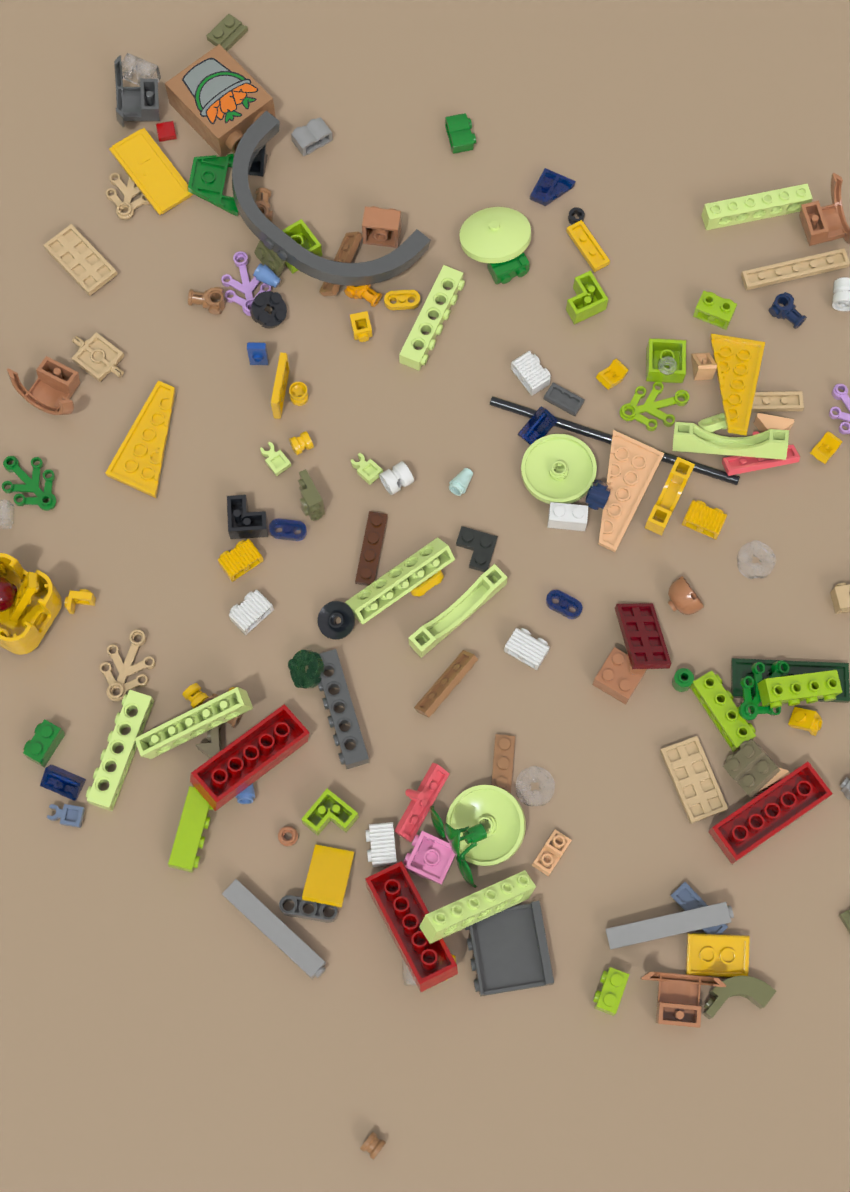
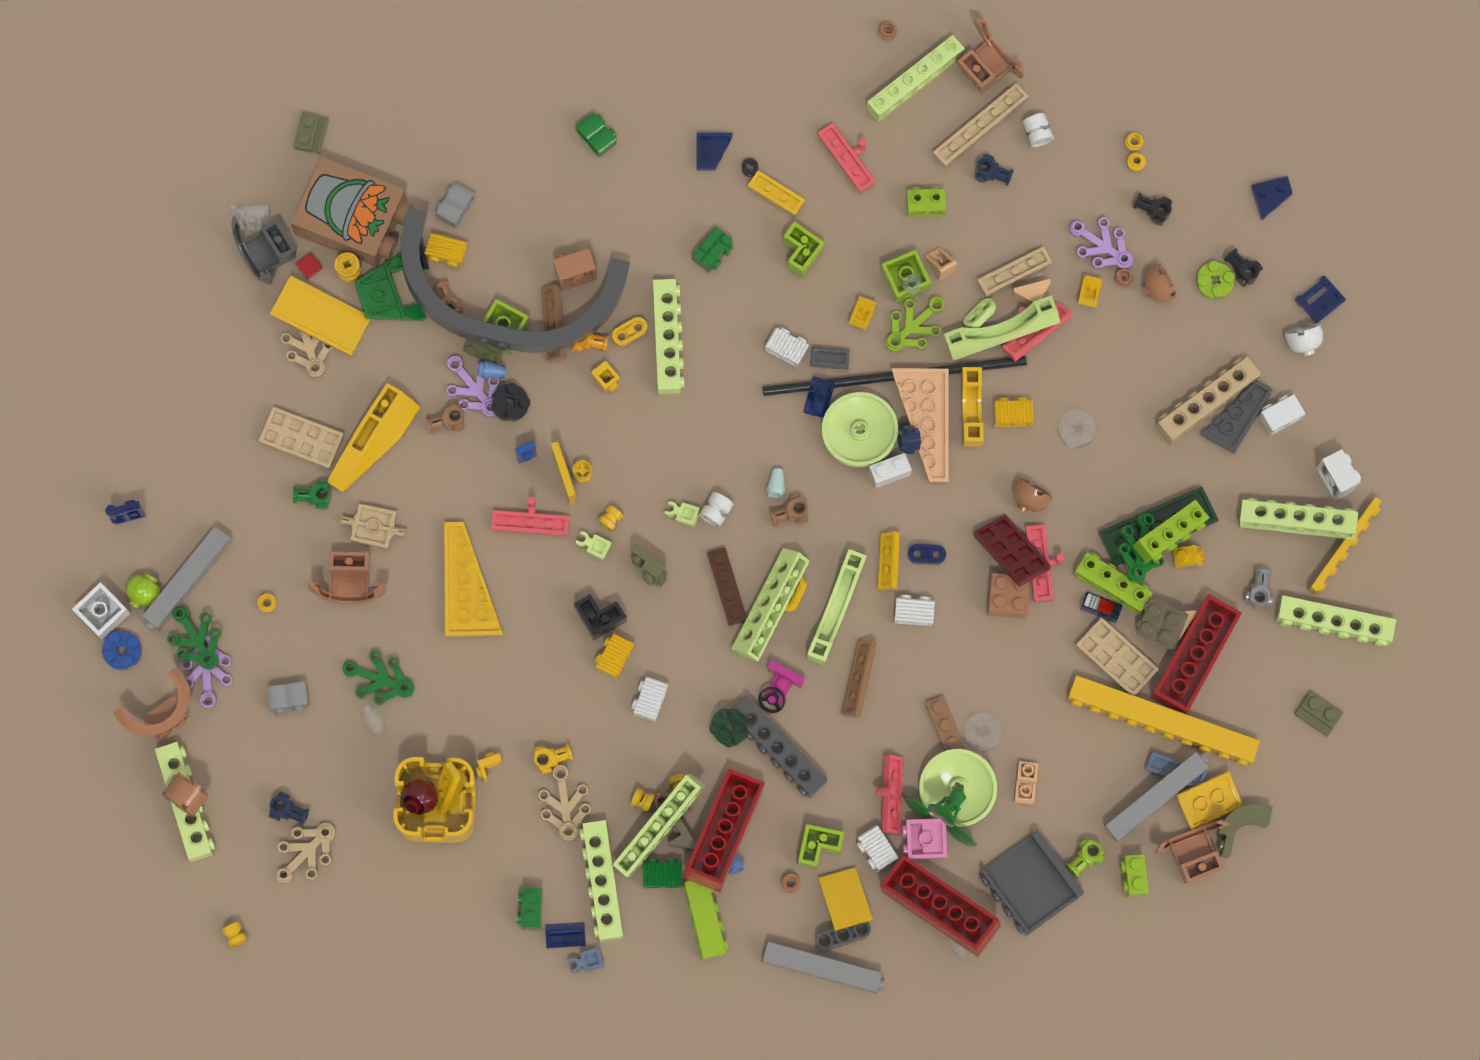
camera: 30 degrees left, 5 degrees up
(62, 307) = (310, 495): none -> green connector
(138, 621) = (554, 756): none -> yellow connector
(141, 283) = (375, 436): none -> yellow wedge
(174, 769) = (662, 874): none -> green brick
(195, 143) = (348, 267): none -> yellow wheel
(231, 414) = (530, 522): none -> coral plate
(284, 167) = (446, 250): none -> yellow brick
(288, 528) = (642, 607): clear blue plate -> none
(328, 616) = (725, 676): black dish -> none
(371, 657) = (779, 686): none -> dark pink piece
(458, 511) = (788, 512): none -> medium nougat connector
(477, 906) = (989, 861): yellowish green brick -> none
(481, 544) = (825, 534): pearl dark grey plate -> none
(495, 235) = (685, 225): yellowish green dish -> none
(526, 594) = (888, 561): none -> yellow plate
(572, 951) = (1084, 857): none -> lime connector
(657, 678) = (1042, 584): none -> coral plate
(664, 244) = (847, 157): none -> coral plate
(682, 685) = (1064, 578): green brick -> none
(701, 727) = (1101, 607): none -> slope
(711, 860) = (1163, 721): none -> yellow brick
(737, 374) = (977, 256): yellow wing -> none
(754, 157) = (887, 25): none -> nougat plate

